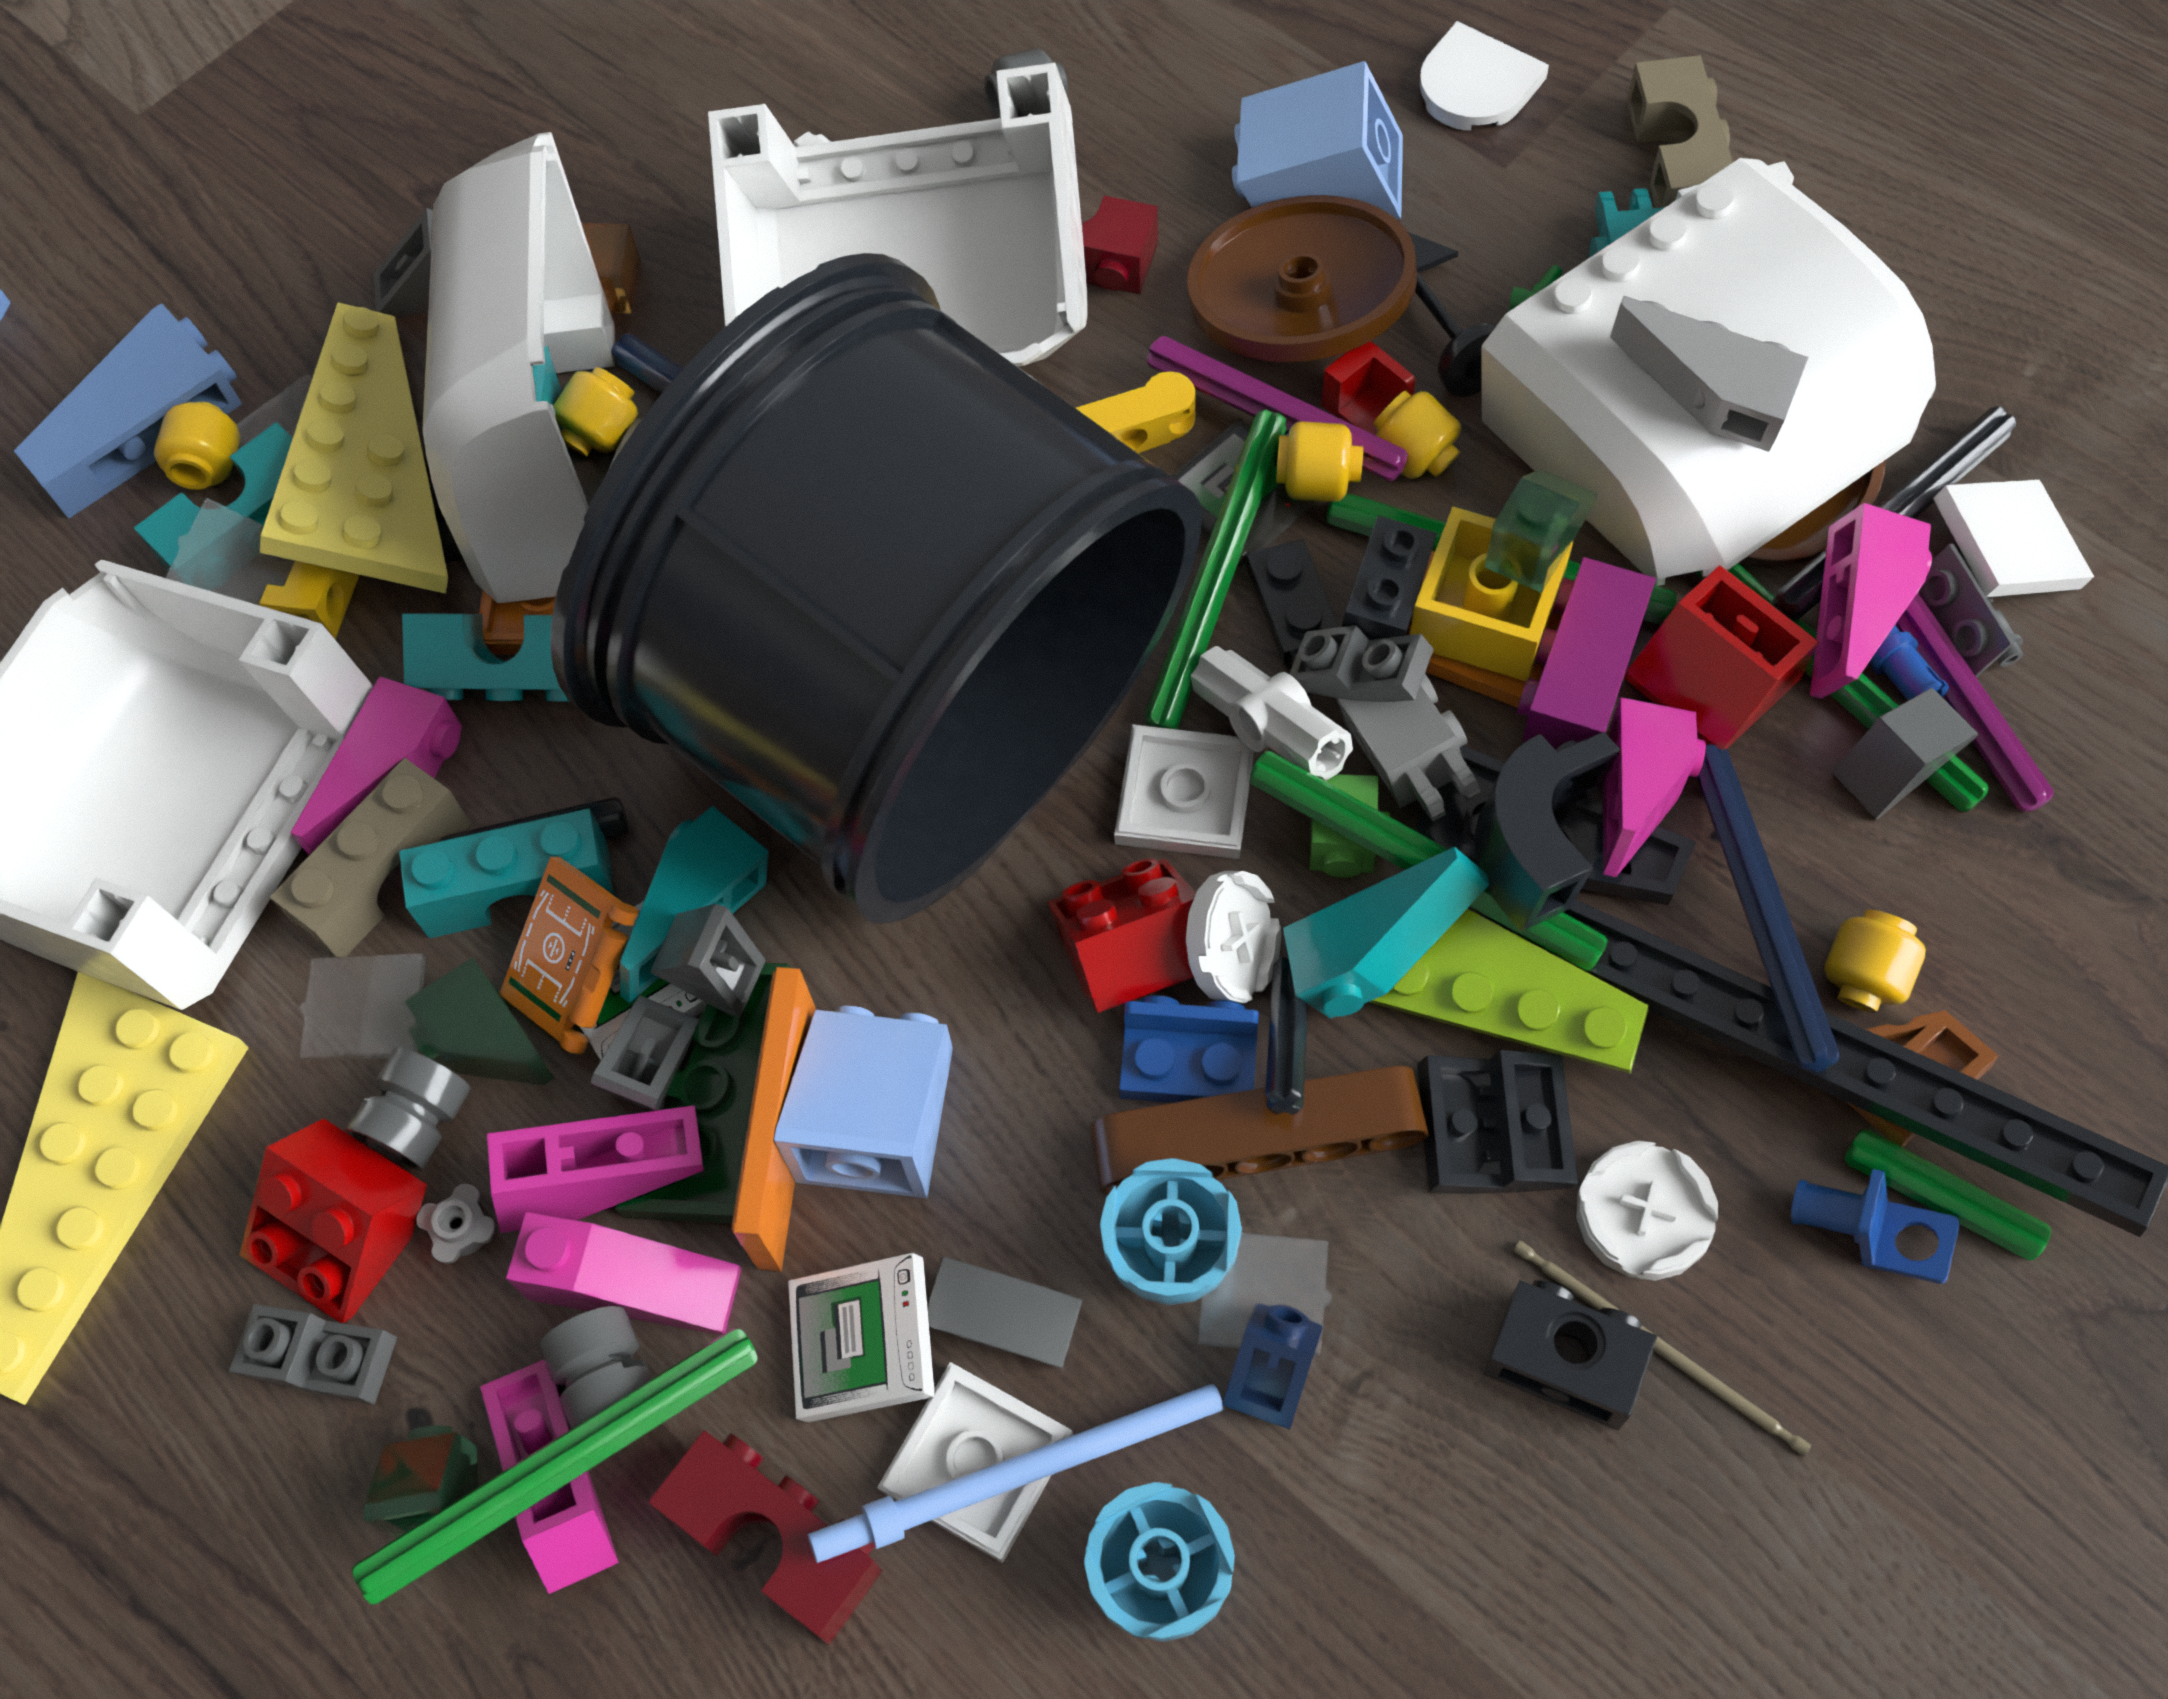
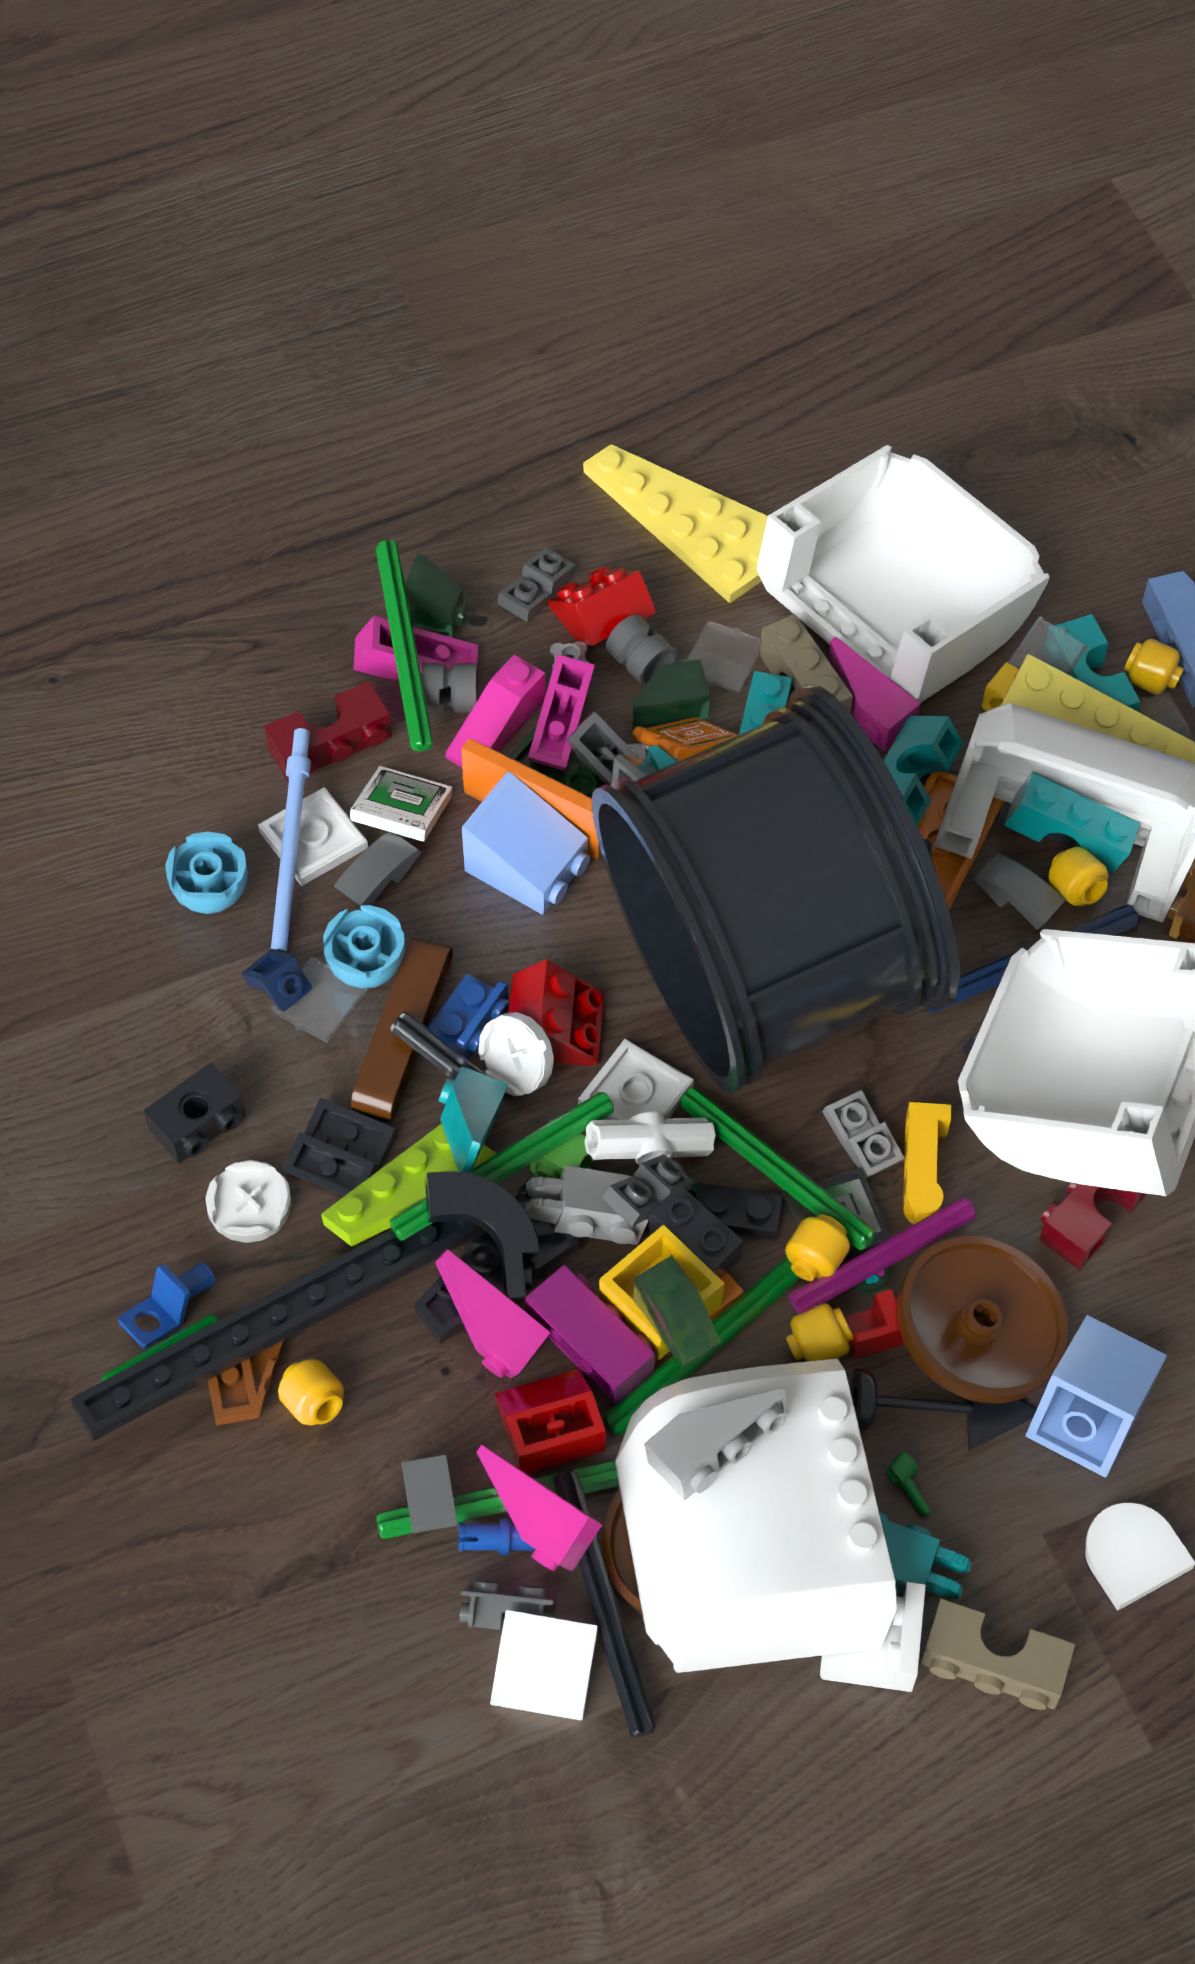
camera: 110 degrees right, 5 degrees down
(1669, 1353) = (175, 1170): dark tan piece -> none
(1766, 914) = (377, 1338): dark blue axle -> none
(1968, 698) = (460, 1566): magenta axle -> none

